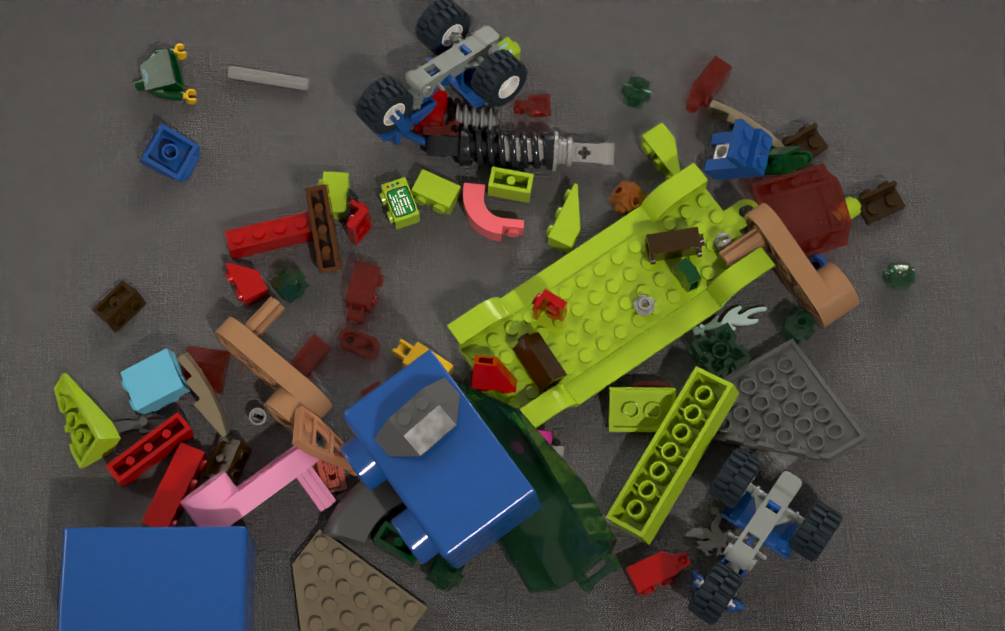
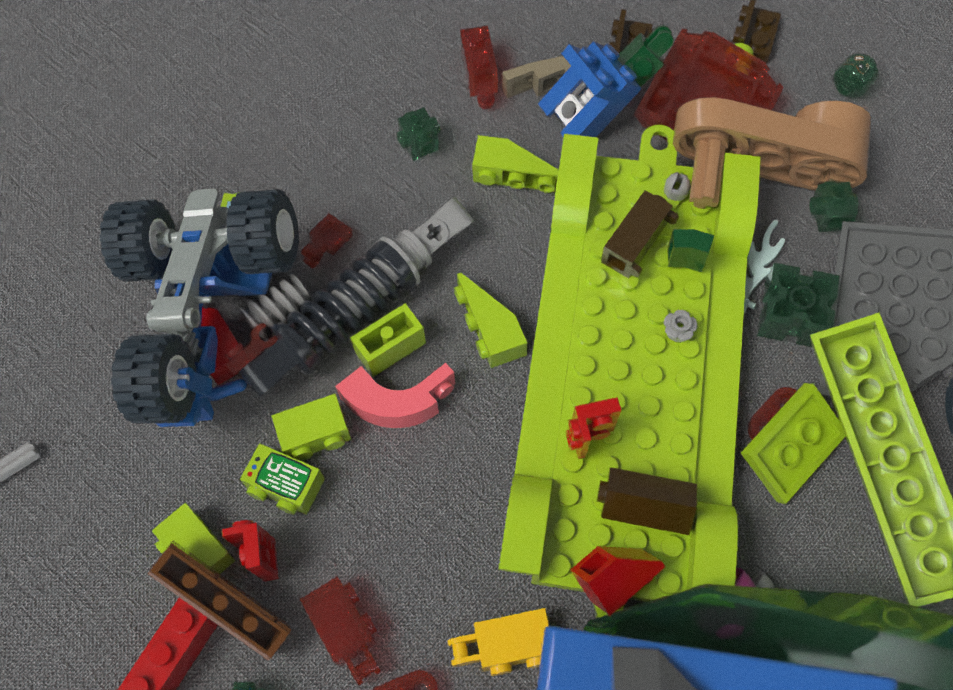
camera: 40 degrees left, 5 degrees down
(627, 197) = (525, 240): dark orange brick -> none

